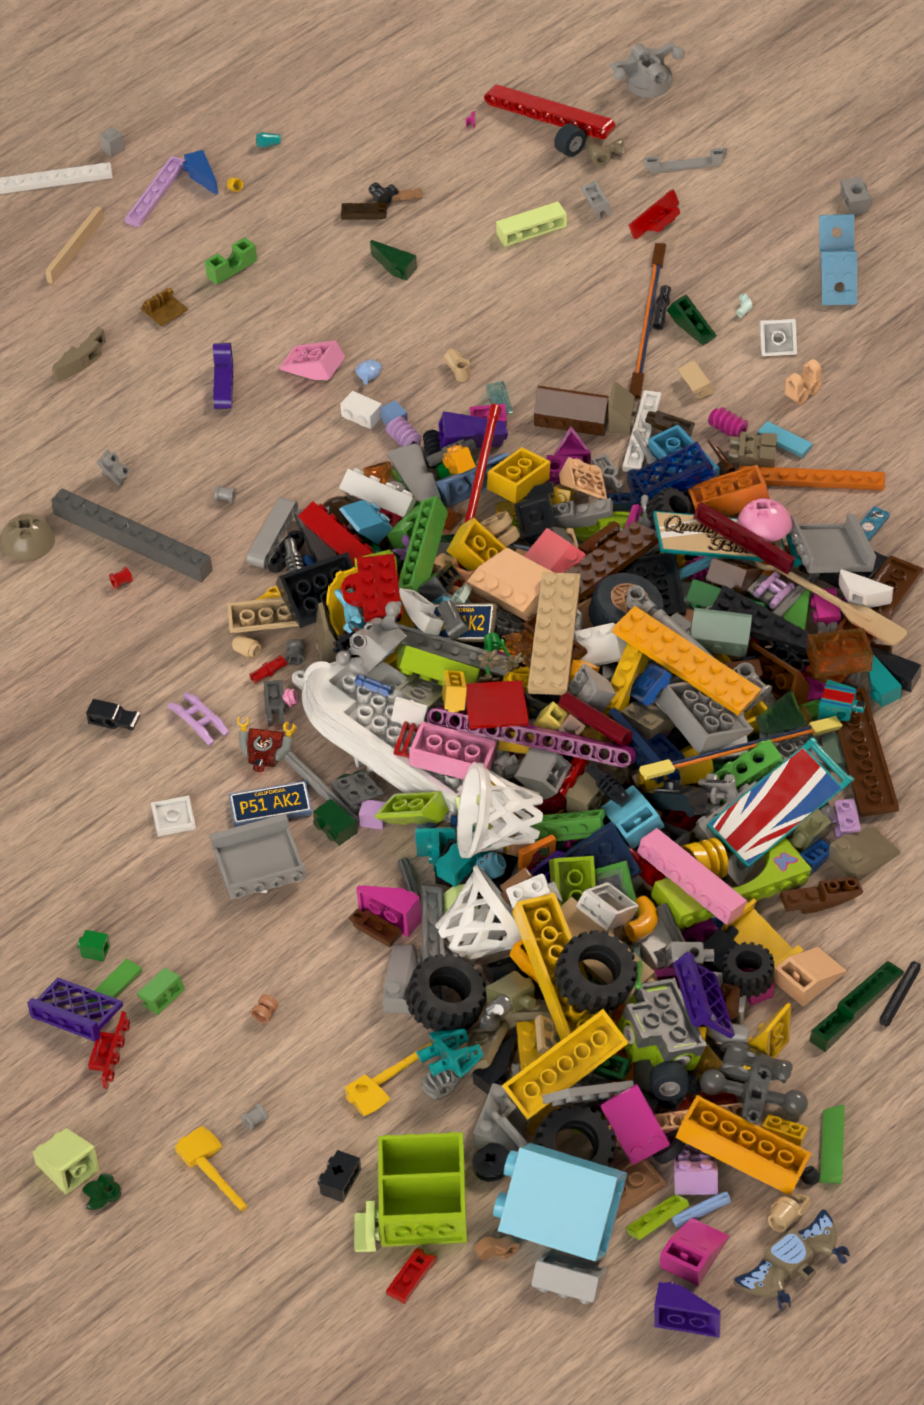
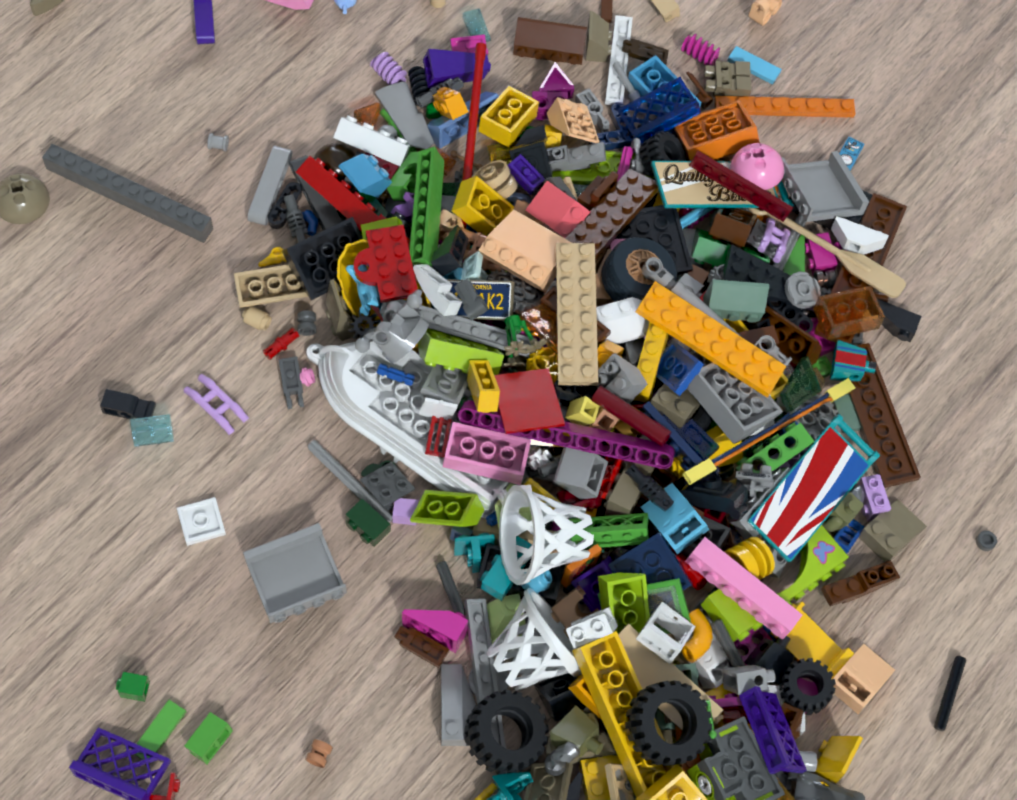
camera: 15 degrees left, 15 degrees up
(112, 467) = (102, 116): light grey hips -> none
(120, 577) = (121, 242): red bush -> none
(134, 736) = (152, 430): none -> clear light blue hinge
(264, 746) = (287, 436): torso -> none
(270, 802) = (299, 502): tile -> none
(361, 409) = (344, 43): white brick -> none
(392, 411) = (375, 45): medium blue brick -> none
(527, 525) = (525, 174): none -> dark purple slope
(793, 630) = (802, 290): none -> light grey tile
(854, 1006) = (909, 710): dark green slope -> none
(882, 685) = (886, 340): teal slope -> none

